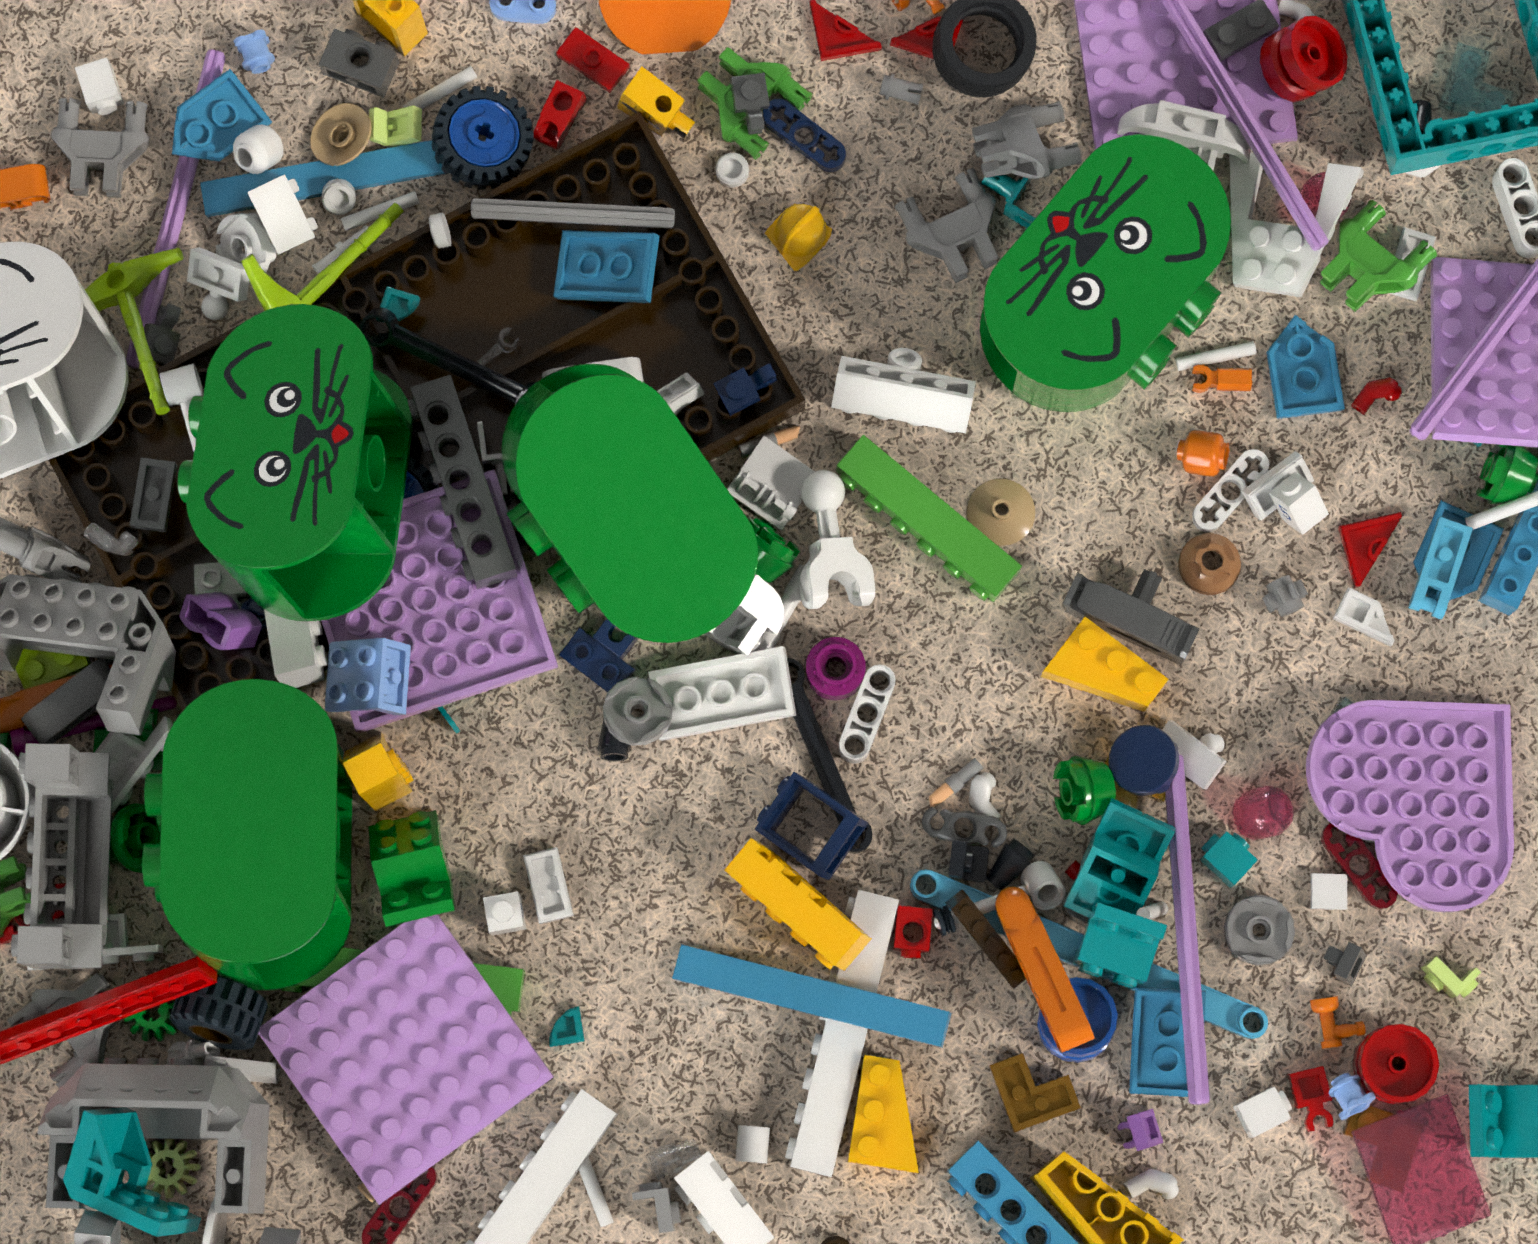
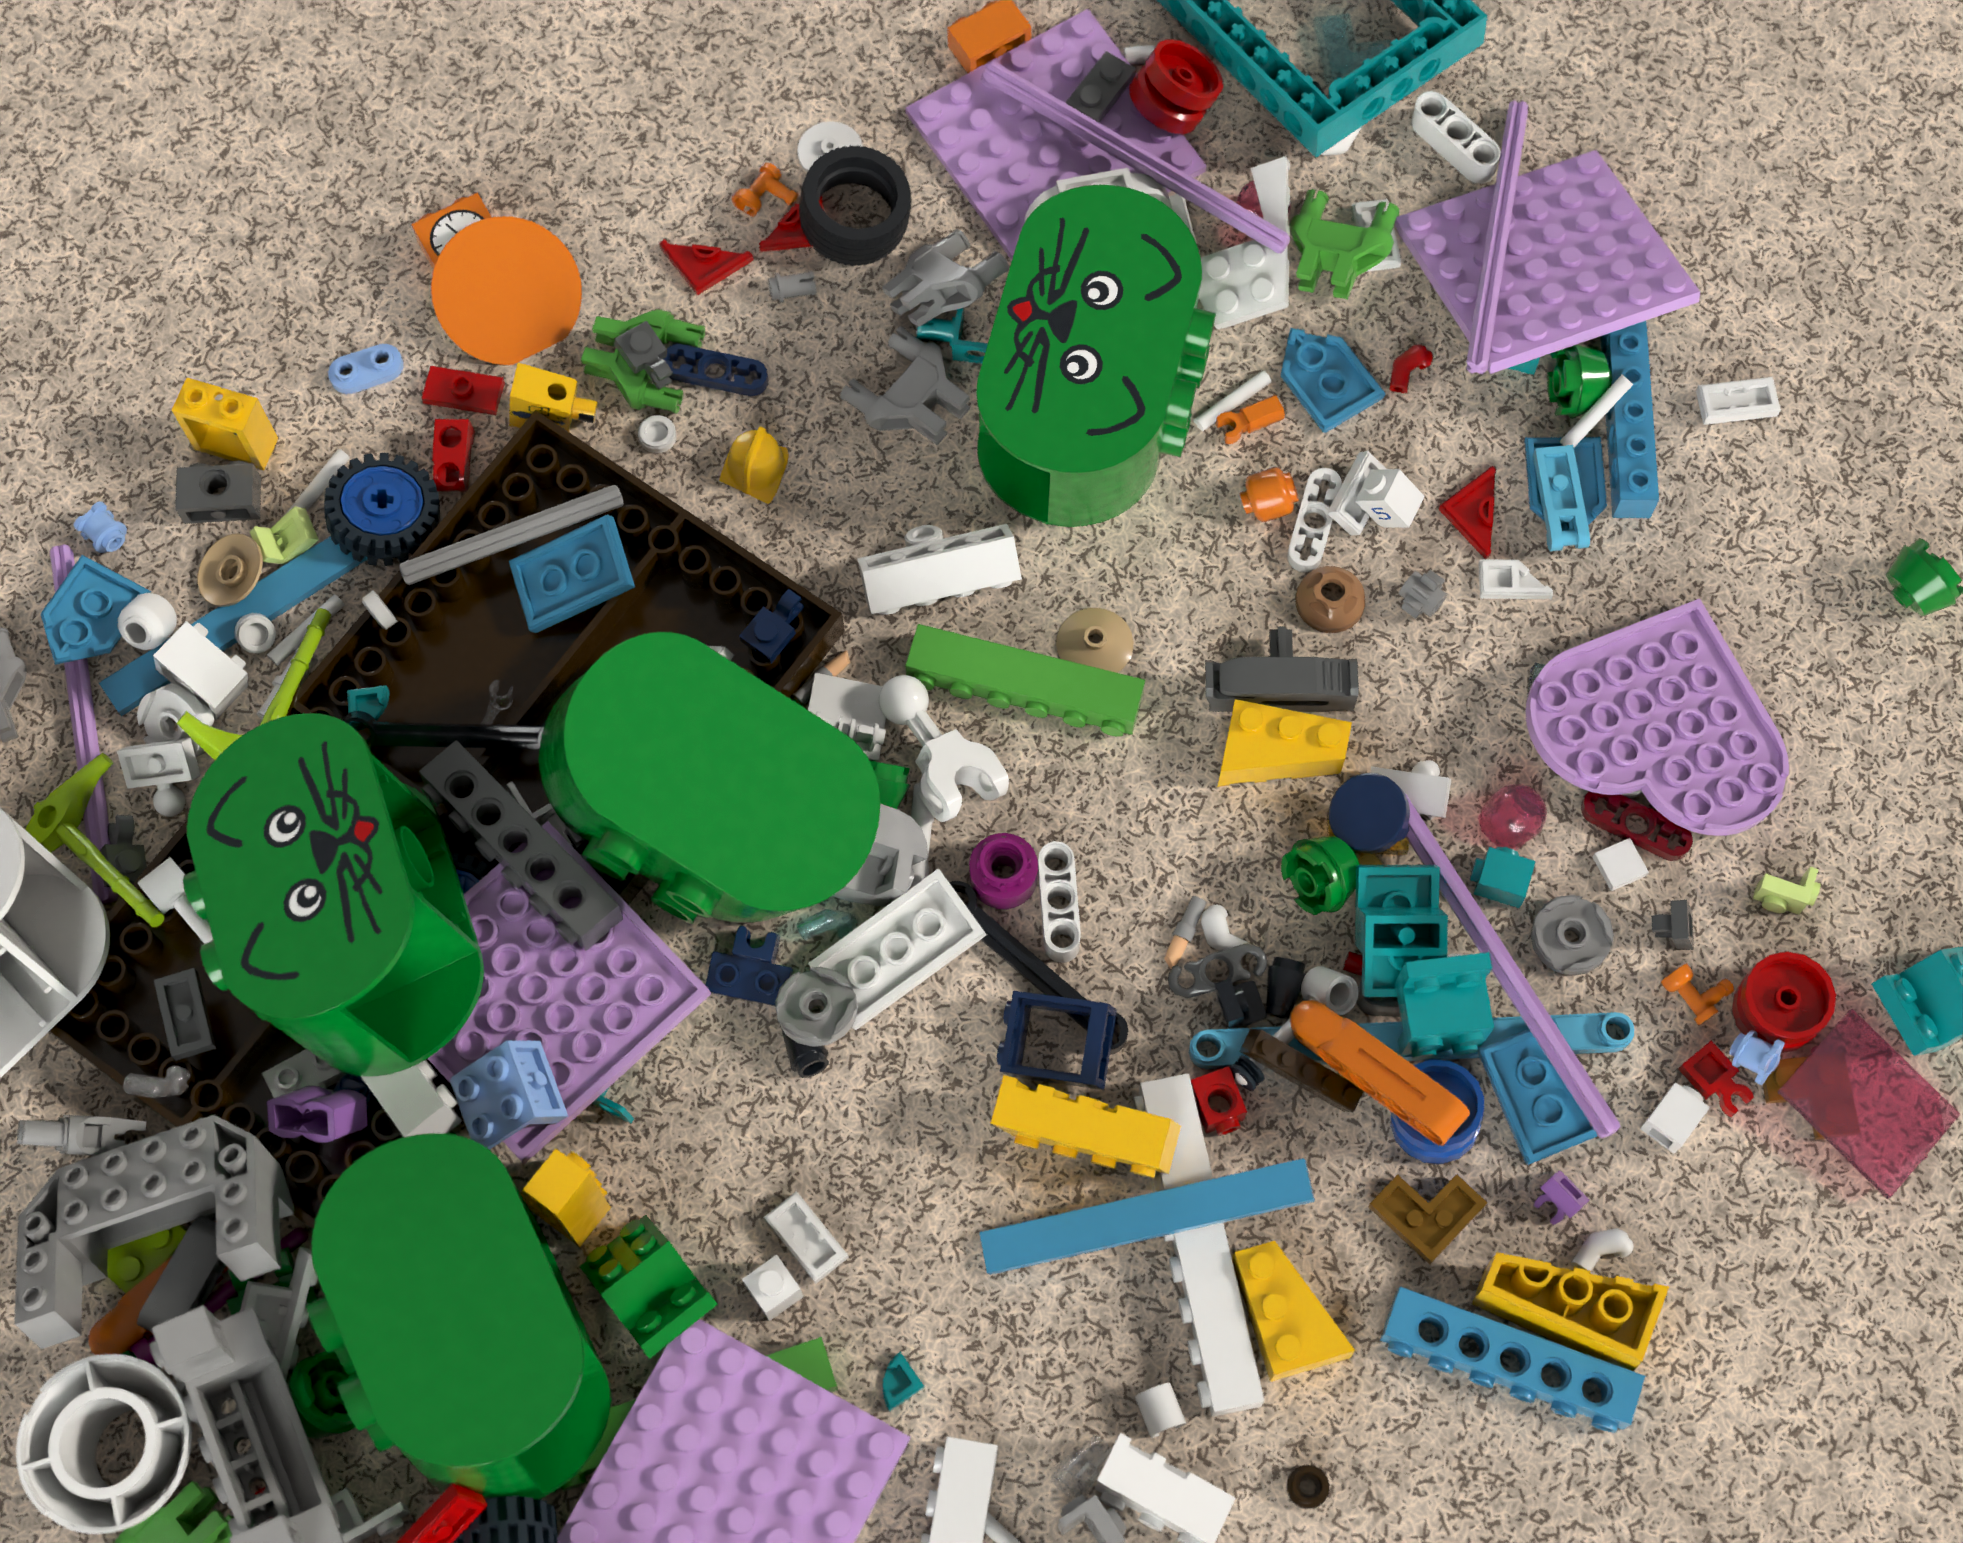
camera: 25 degrees left, 10 degrees down
(691, 650) = (827, 920): none -> clear light blue arm

